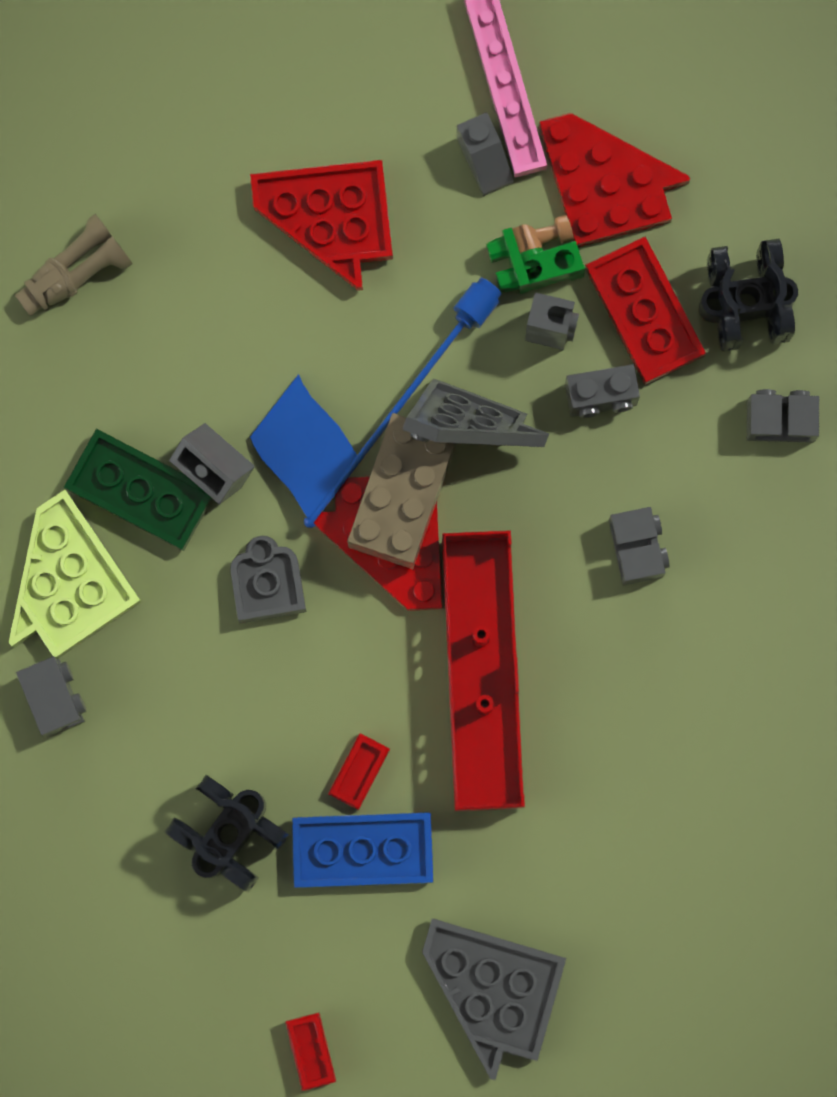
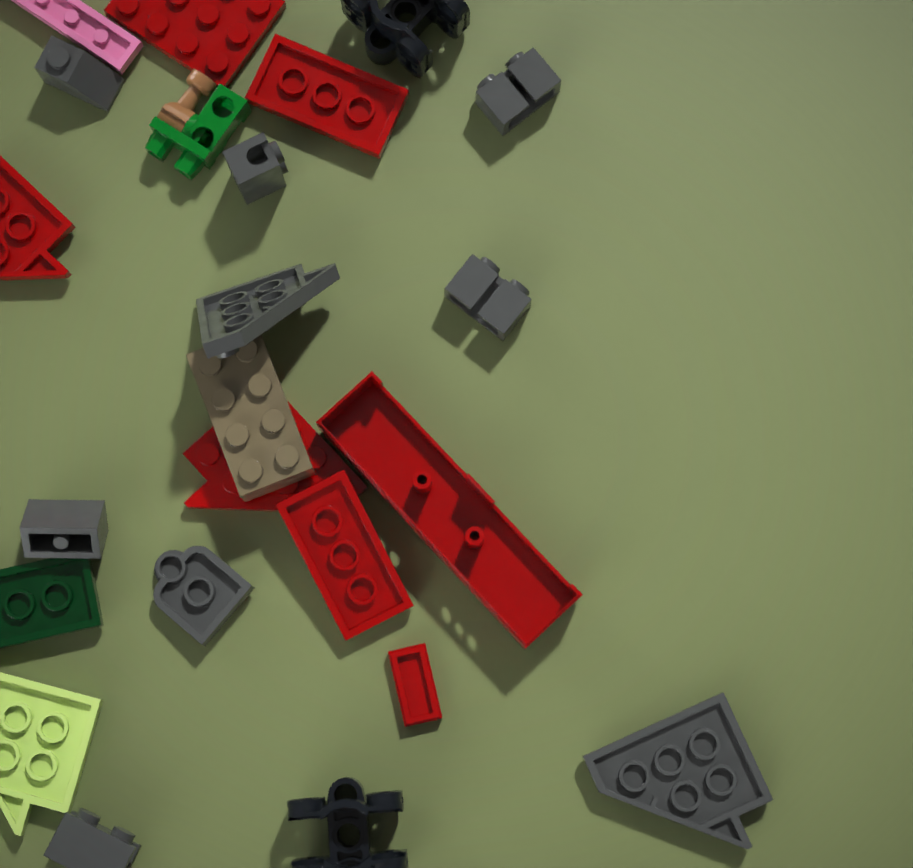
camera: 45 degrees left, 0 degrees up
(309, 447) = (138, 445): blue flag -> none
(362, 850) = (475, 749): blue plate -> none
(386, 641) = (344, 554): none -> red plate
(602, 391) = (348, 192): dark grey brick -> none

